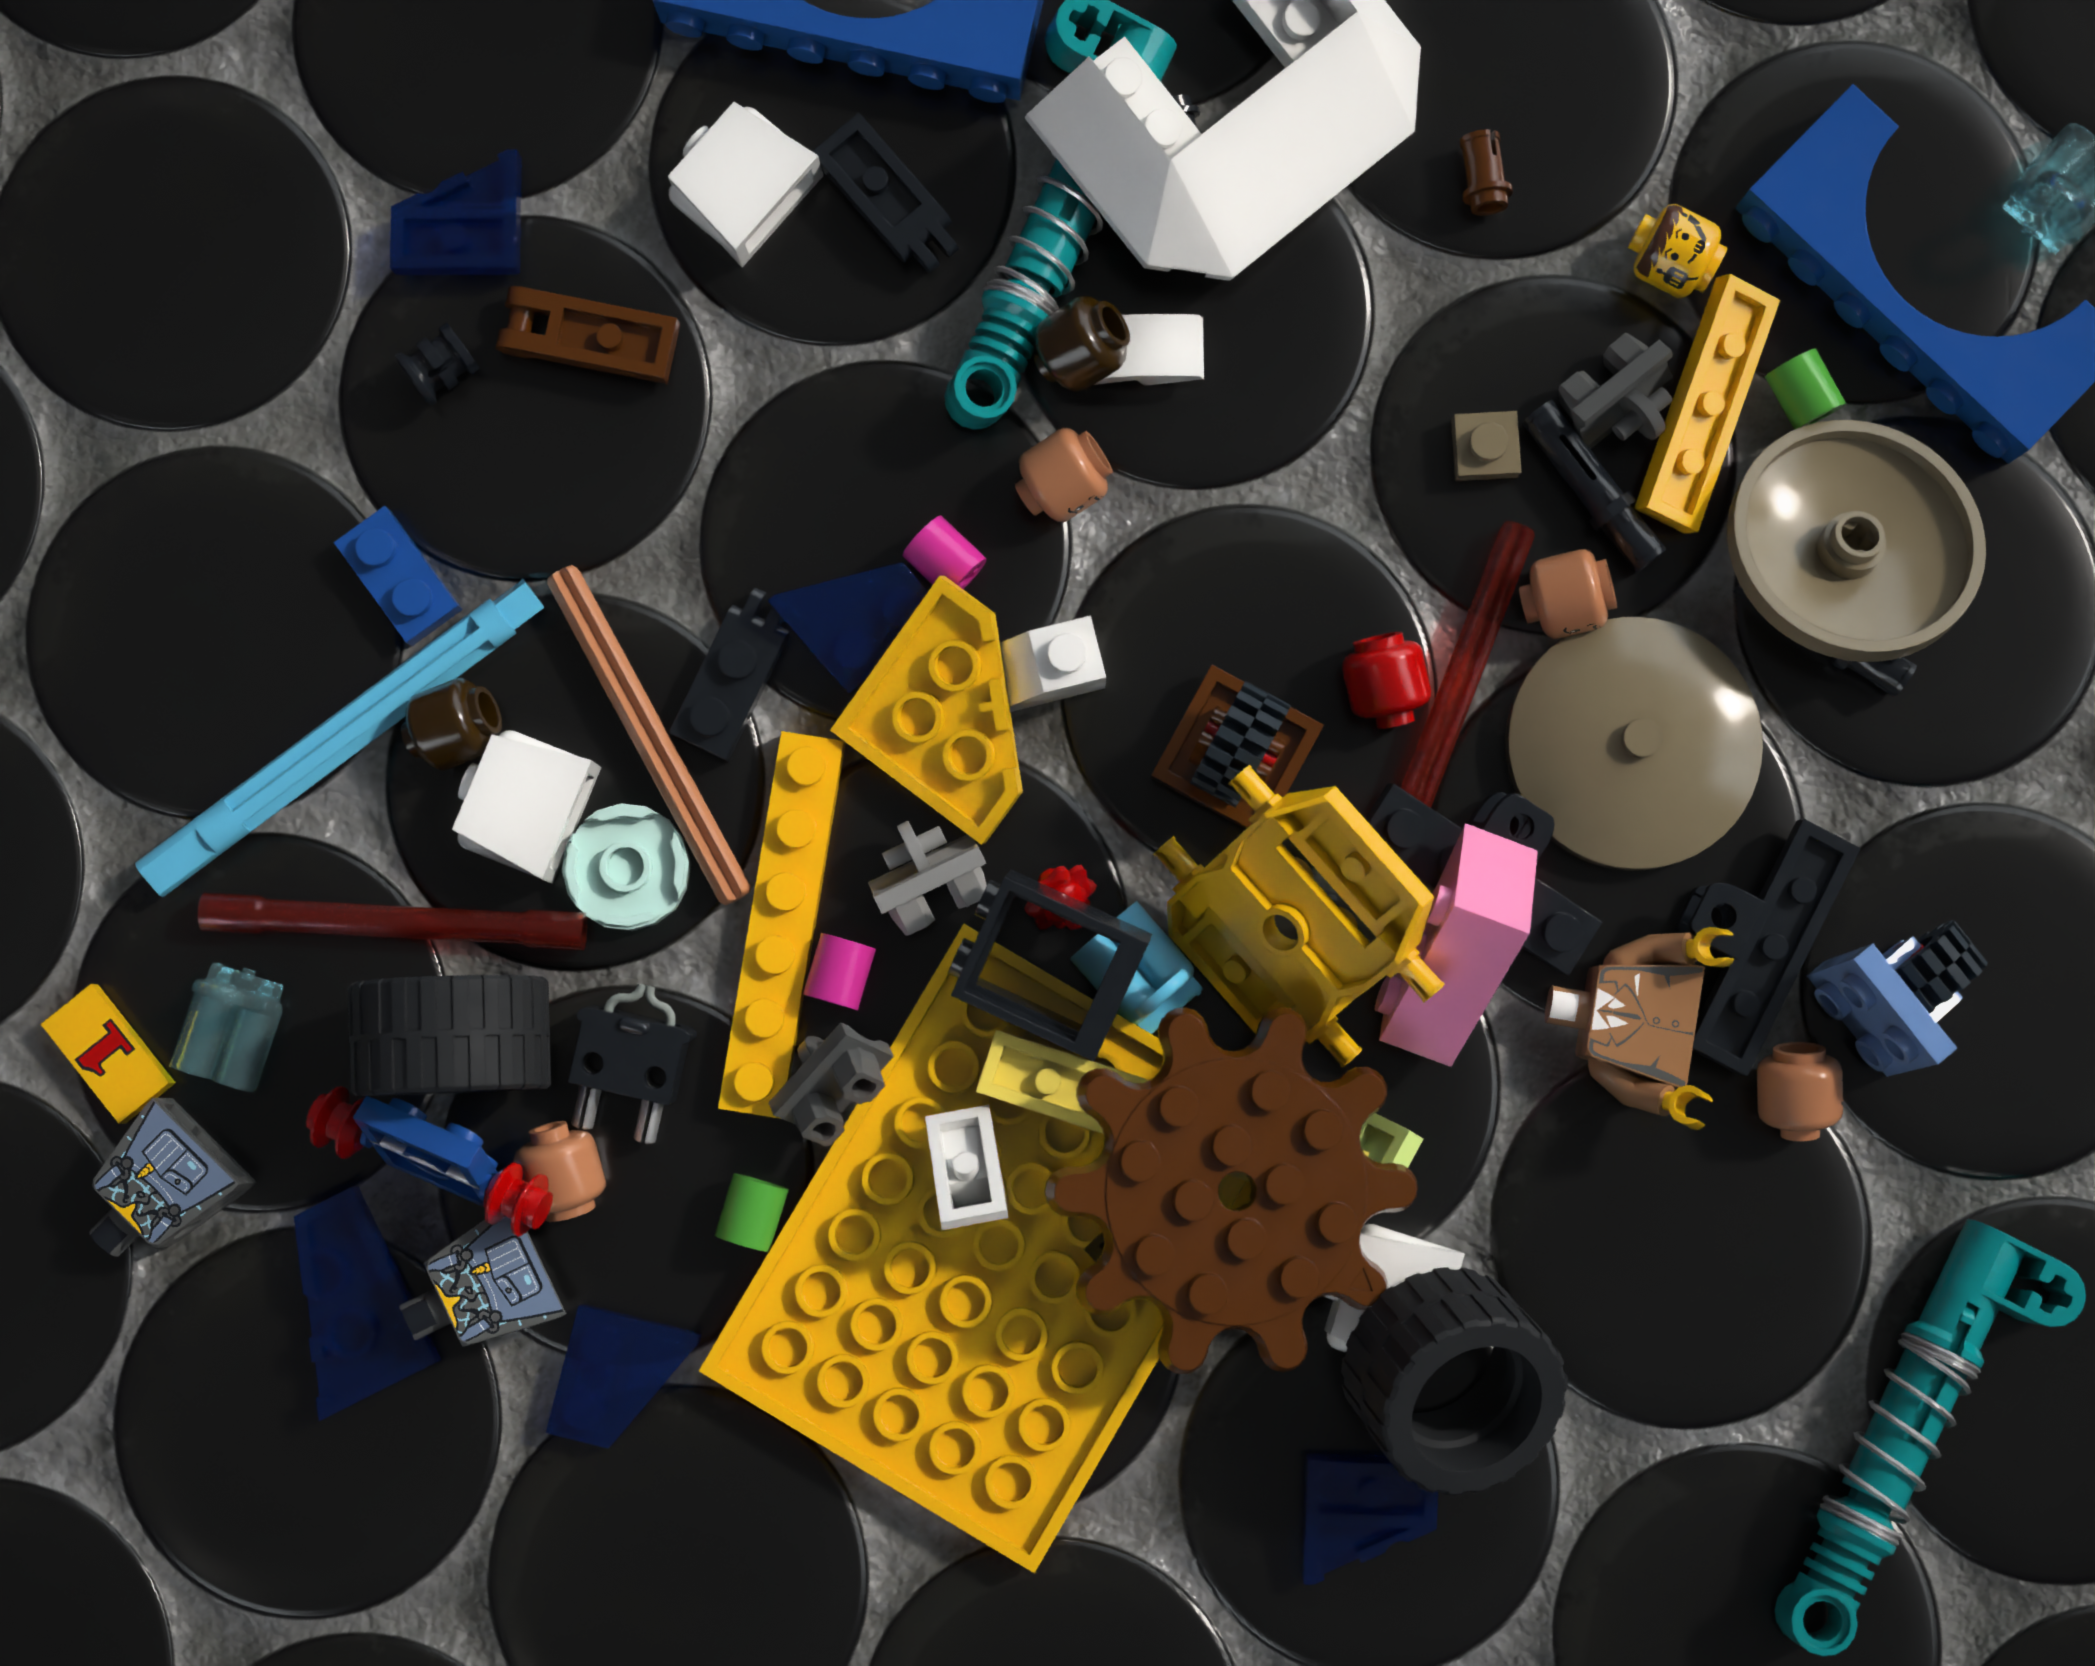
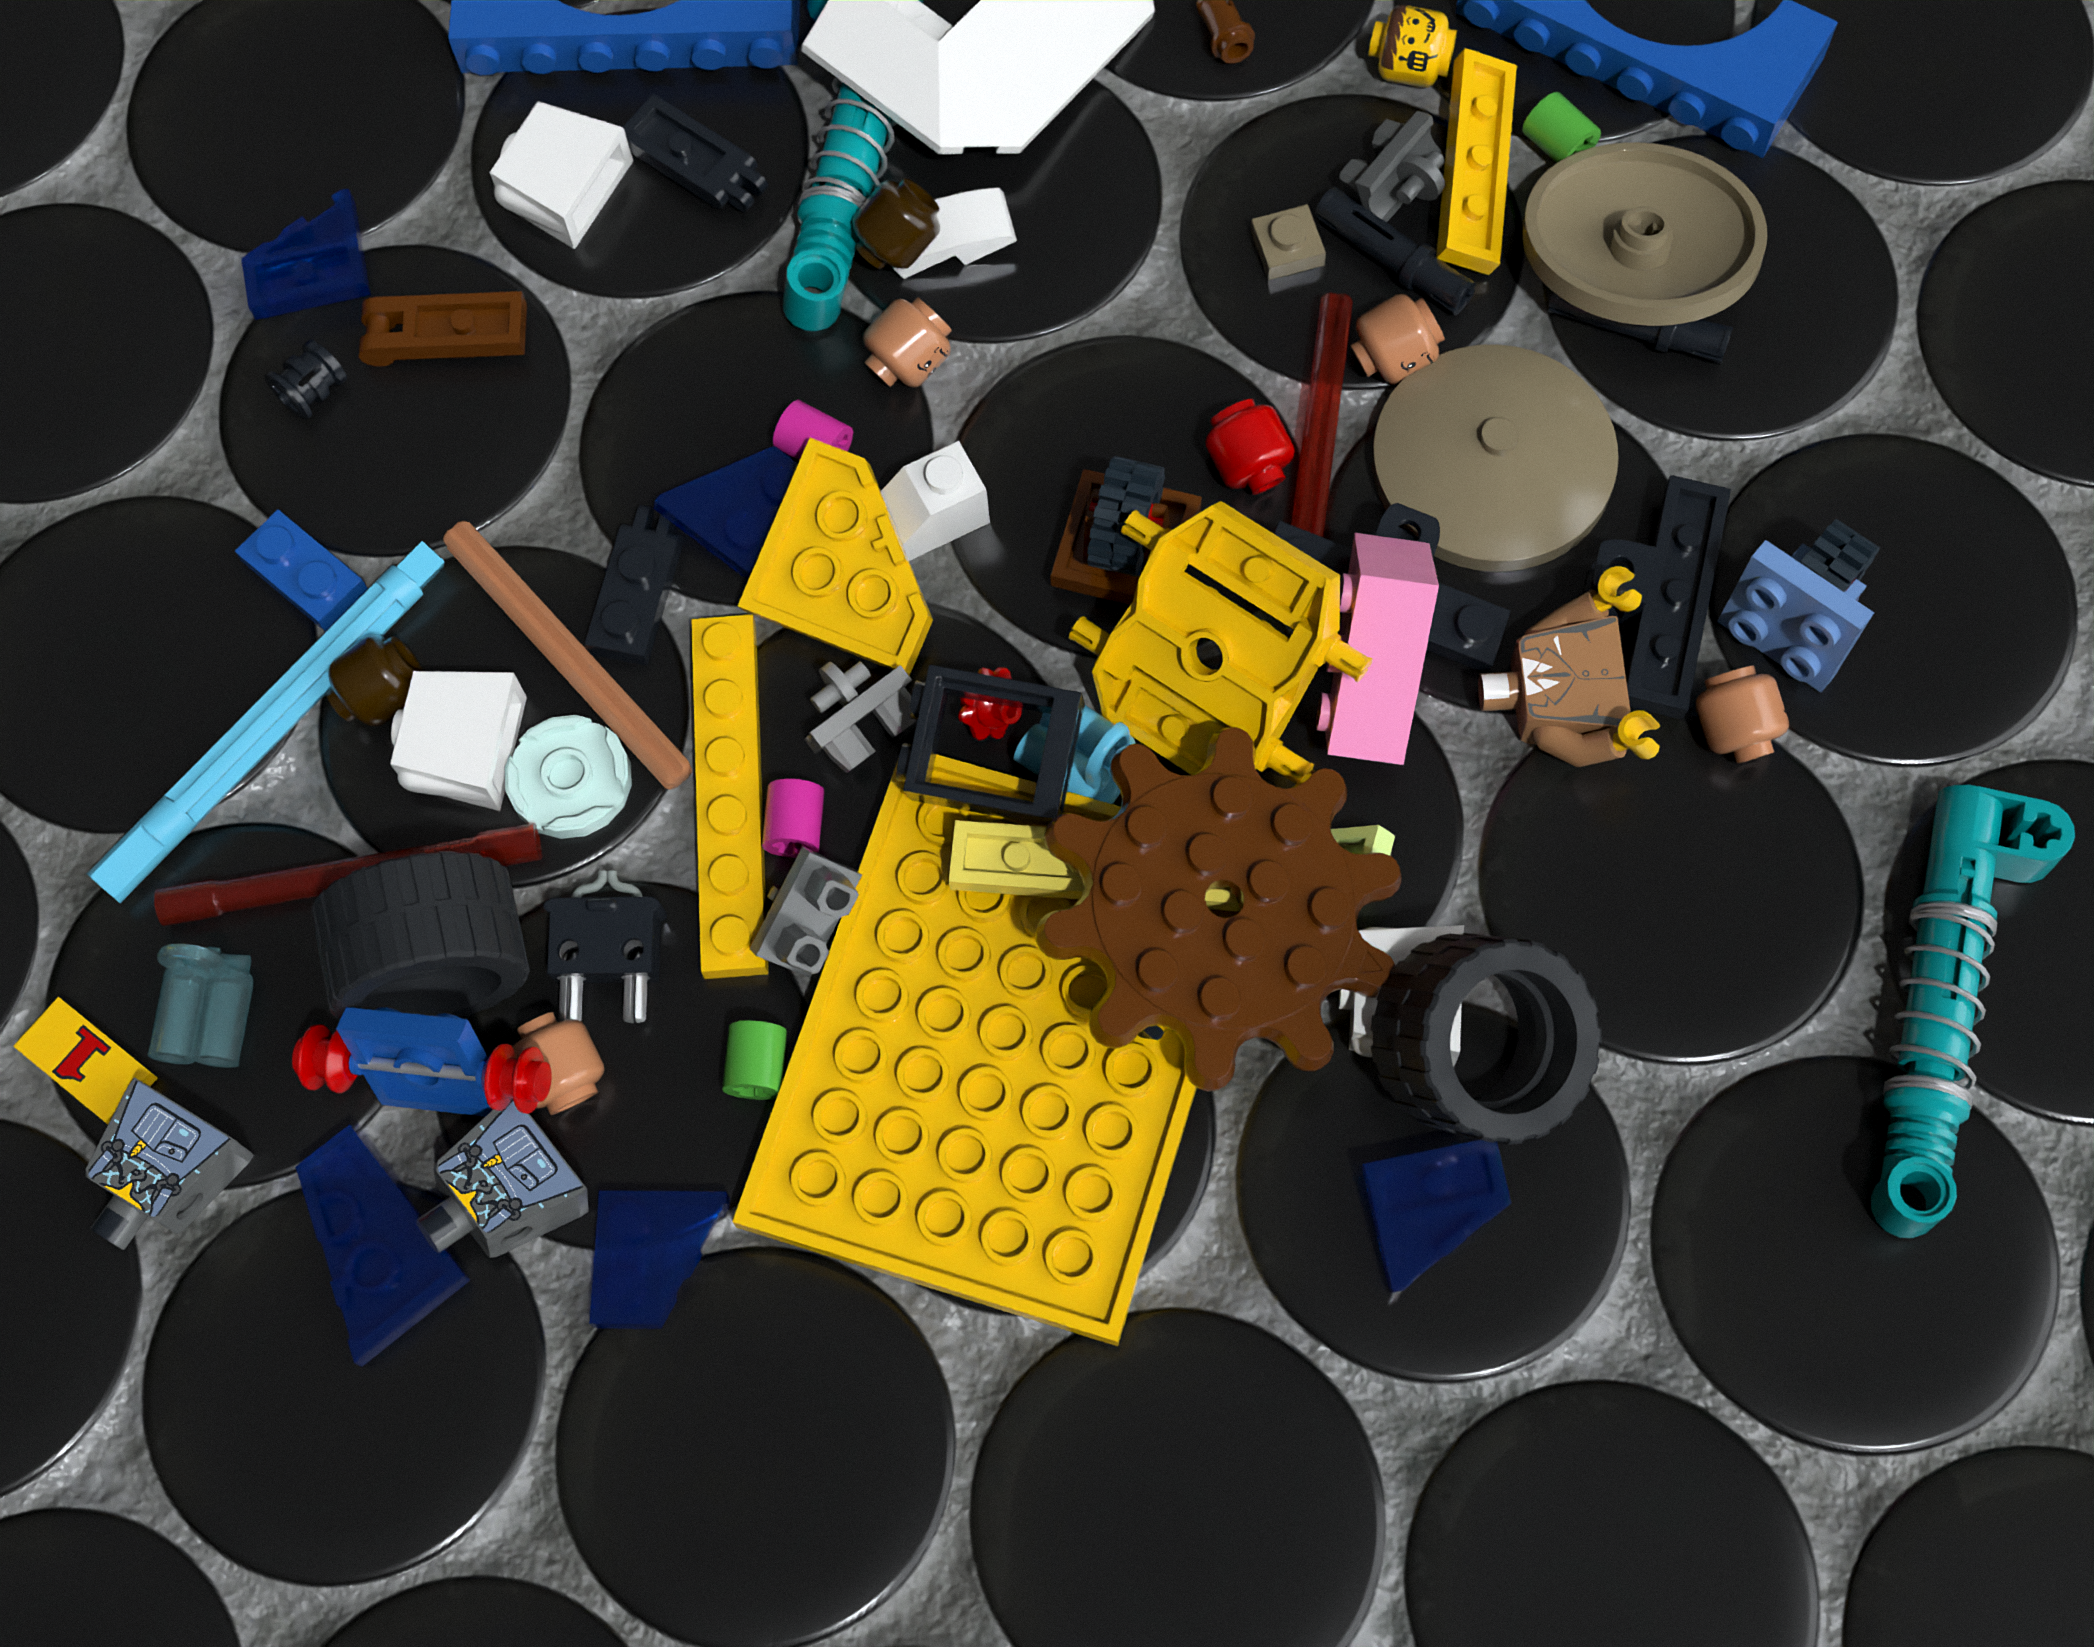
camera: 10 degrees left, 15 degrees down
(966, 1167) = (957, 954): white slope -> none

